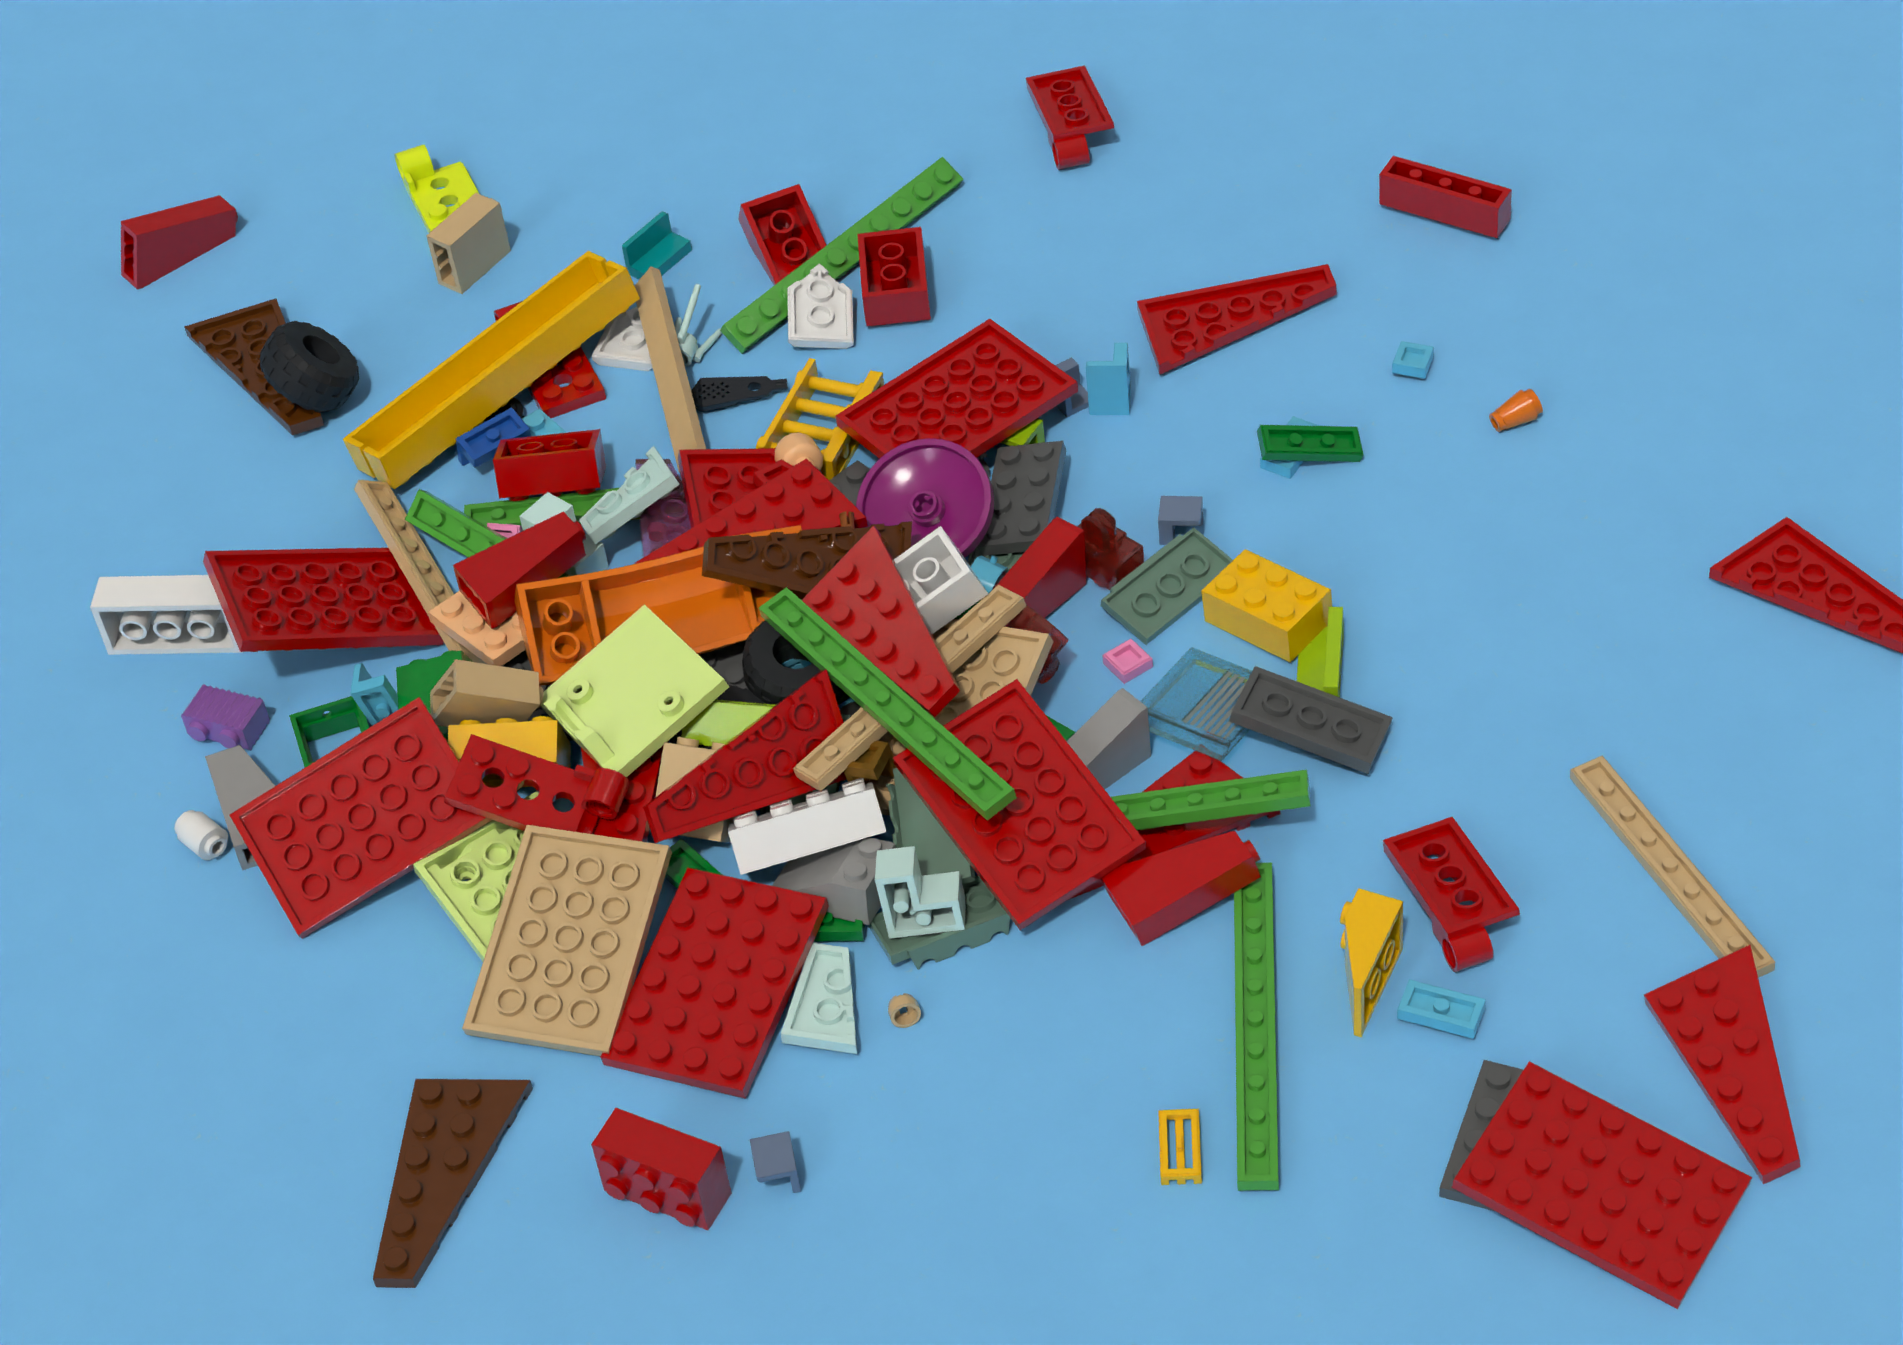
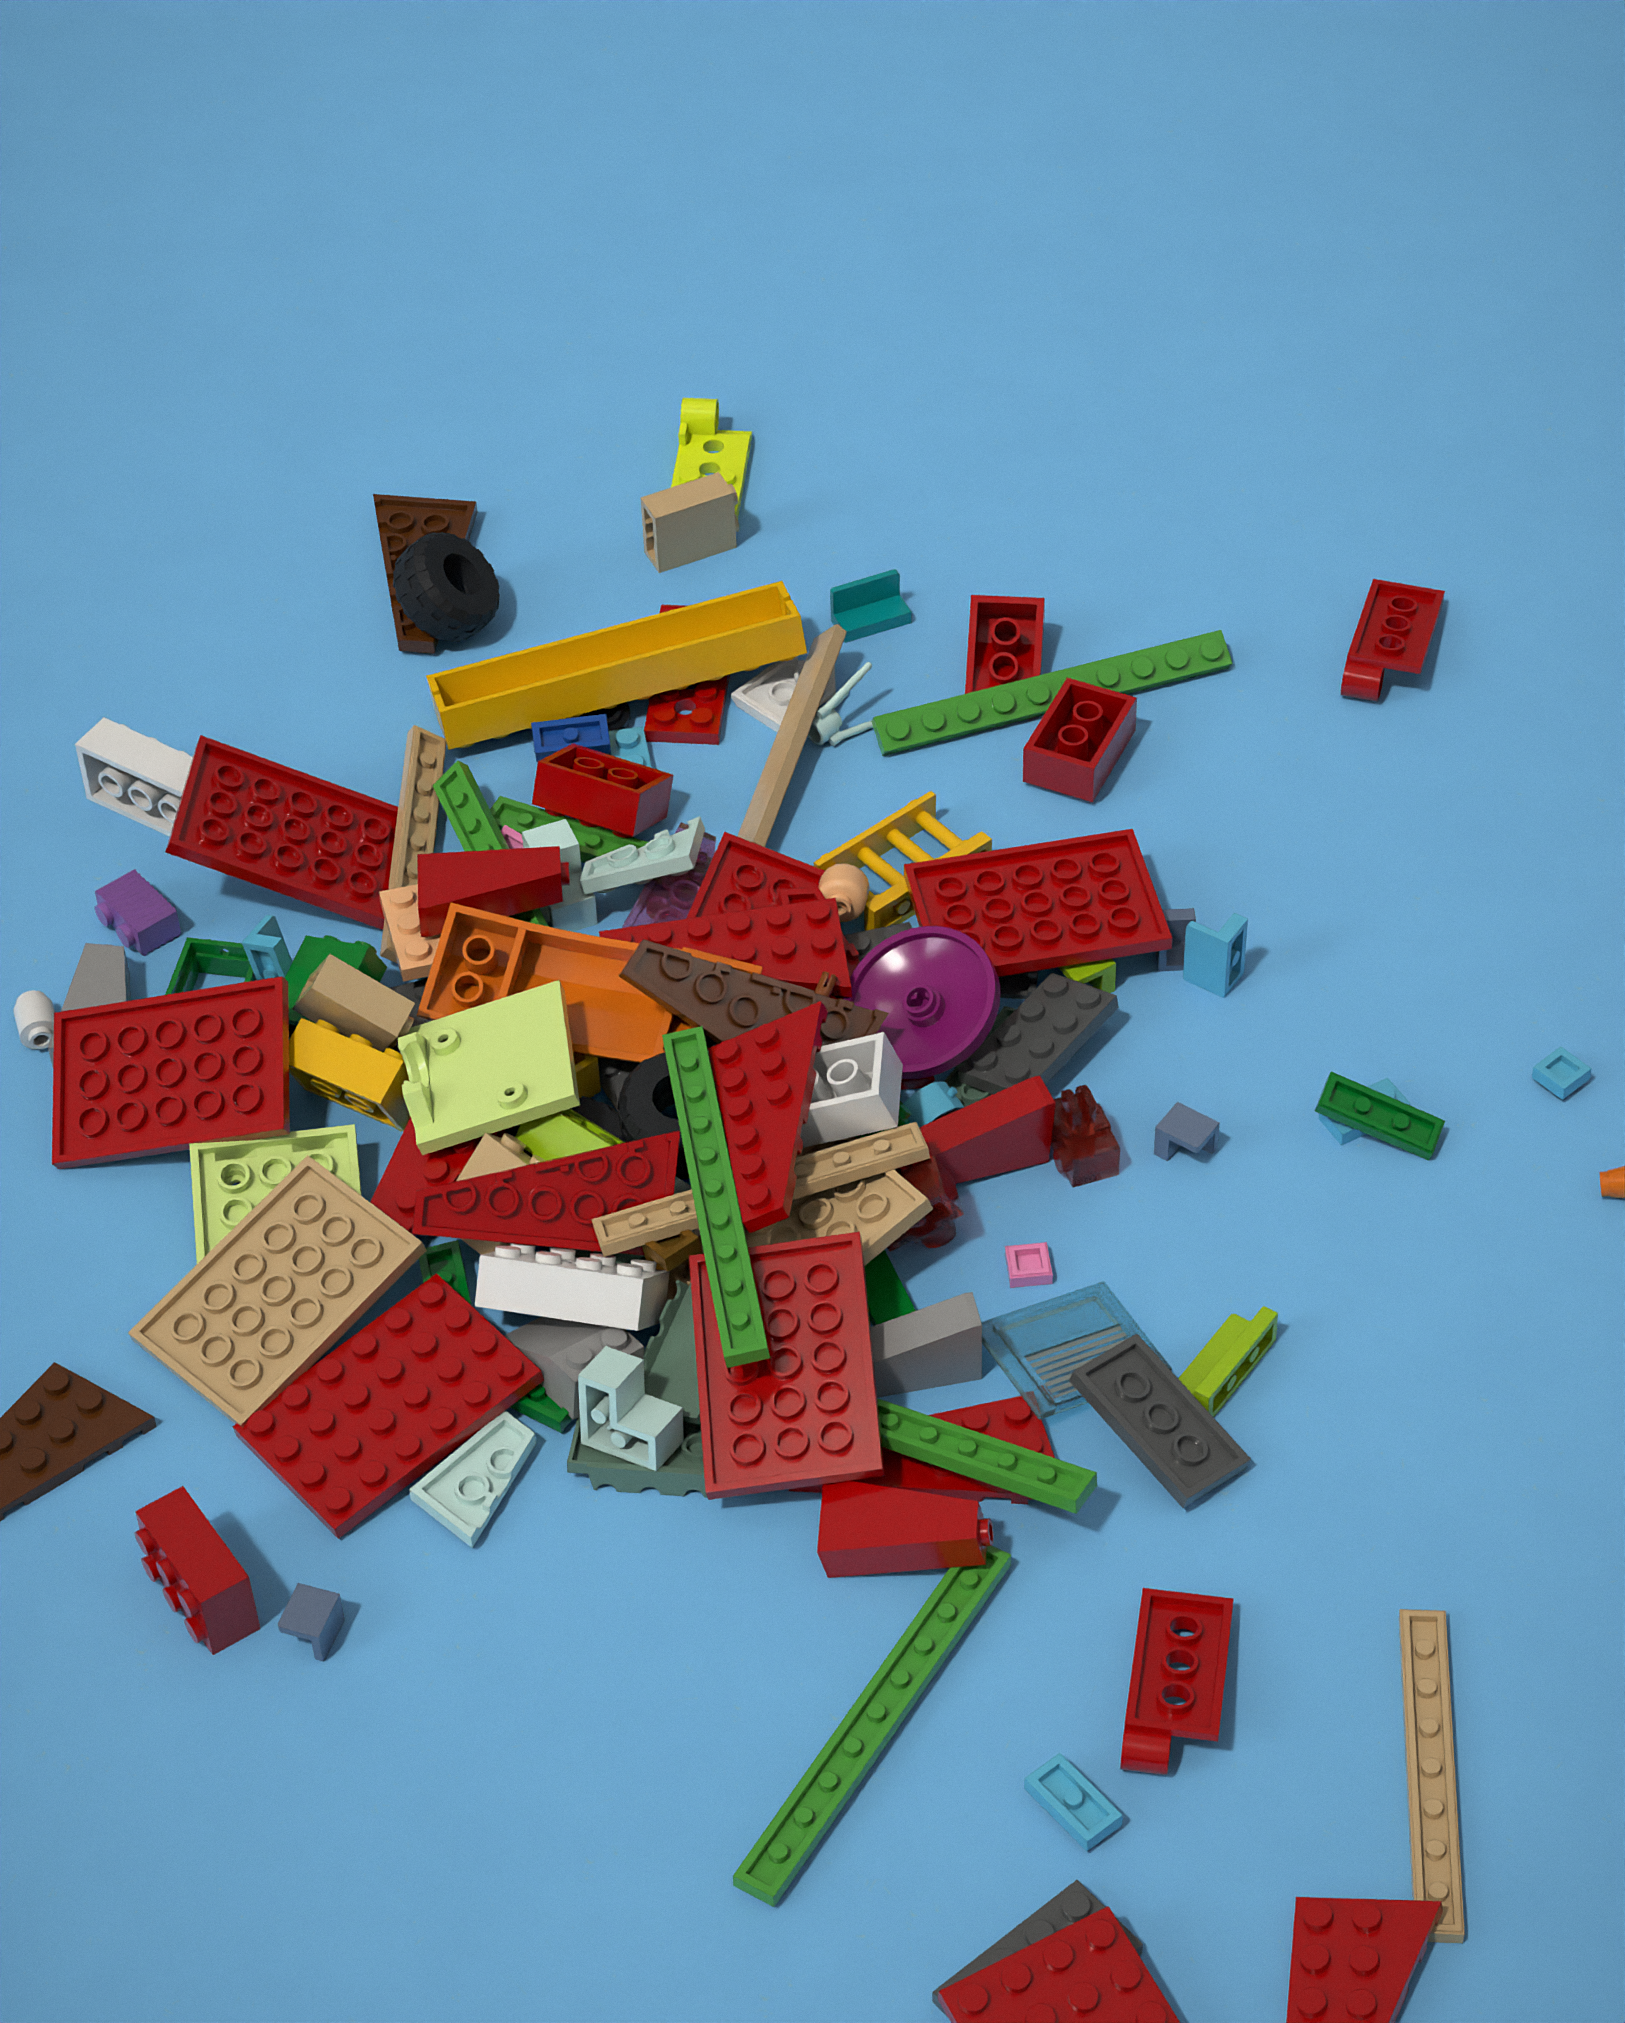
camera: 25 degrees right, 0 degrees up
(172, 237) = (425, 397): red slope -> none
(591, 791) = (393, 1152): red hinge -> none
(727, 391) = (834, 789): black piece -> none
(820, 312) = (981, 745): white tile -> none
(905, 1019) = (536, 1523): tan hinge -> none
(1165, 585) = (1126, 1202): sand green piece -> none
(1181, 1173) = (693, 1839): yellow tile -> none
(1207, 318) = (1375, 927): red wing -> none
(1267, 605) = (1205, 1272): yellow brick -> none
(1371, 950) = (1032, 1705): yellow slope -> none

